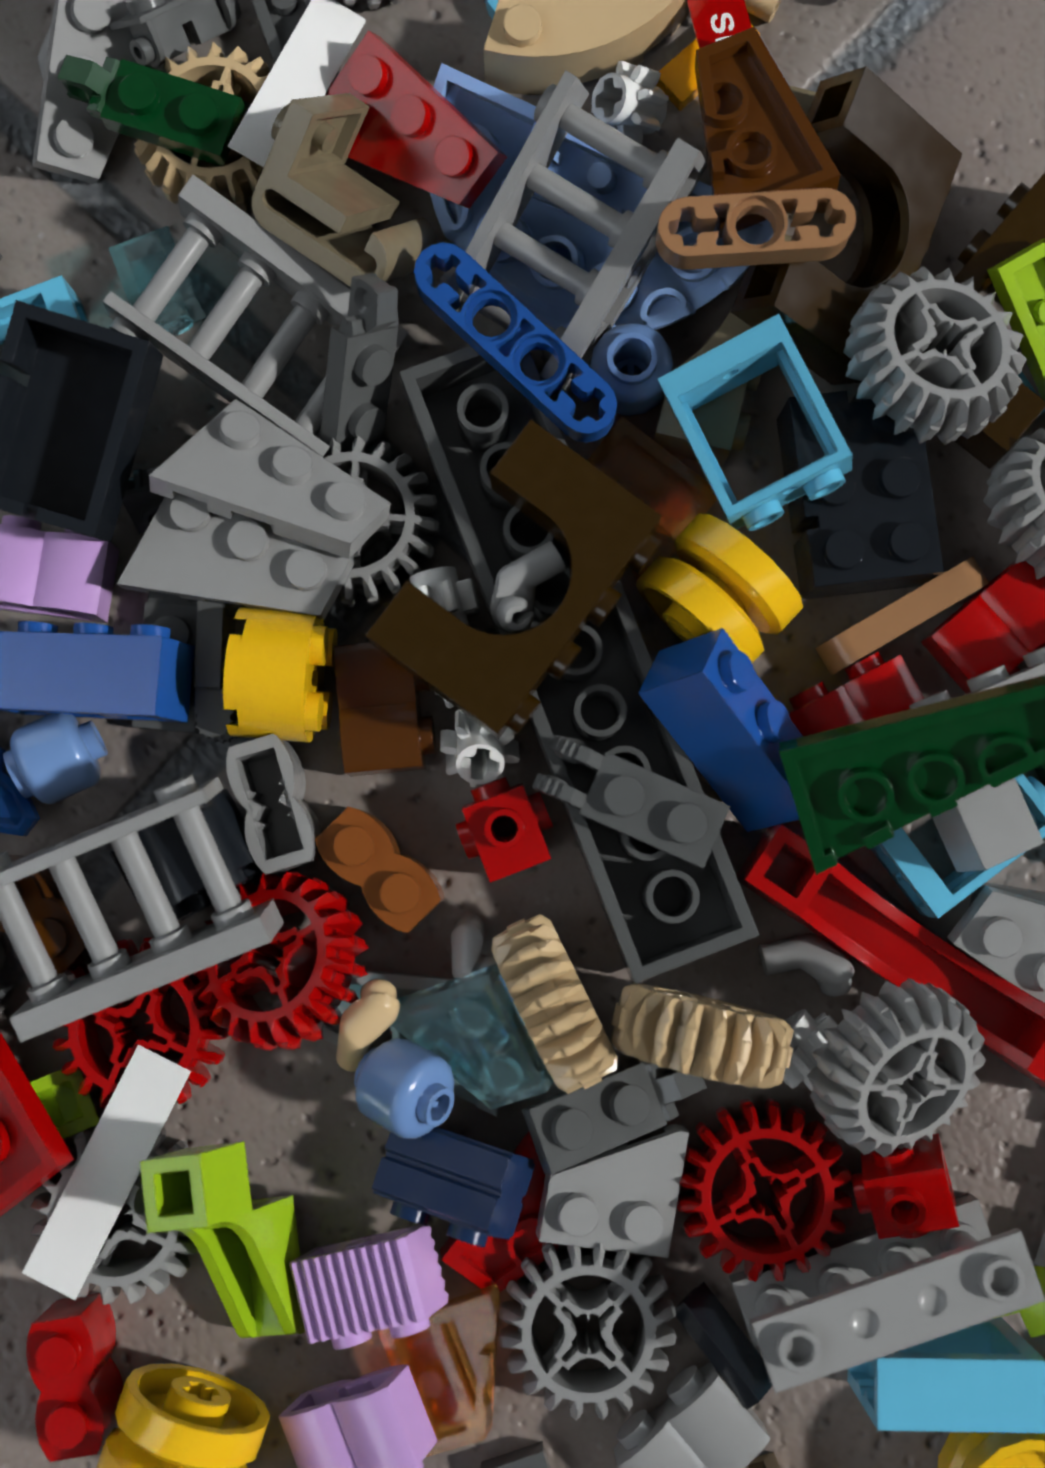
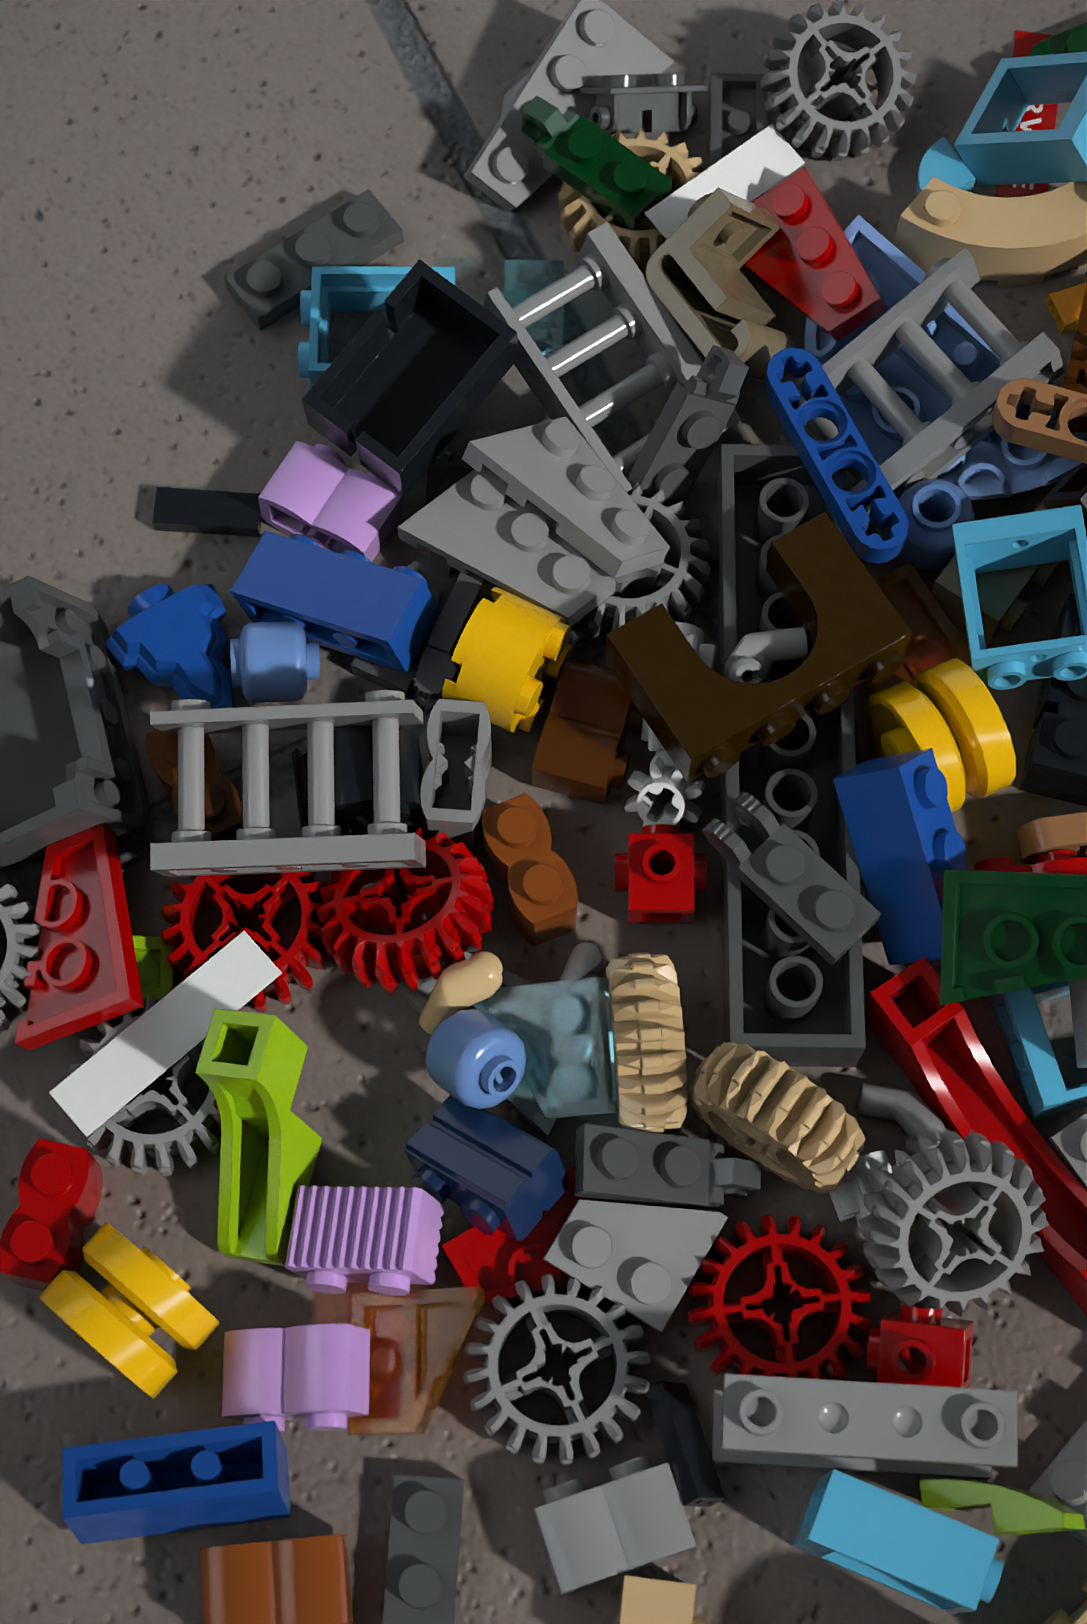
camera: 20 degrees right, 15 degrees down
(630, 100) = (1019, 303): white gear -> none

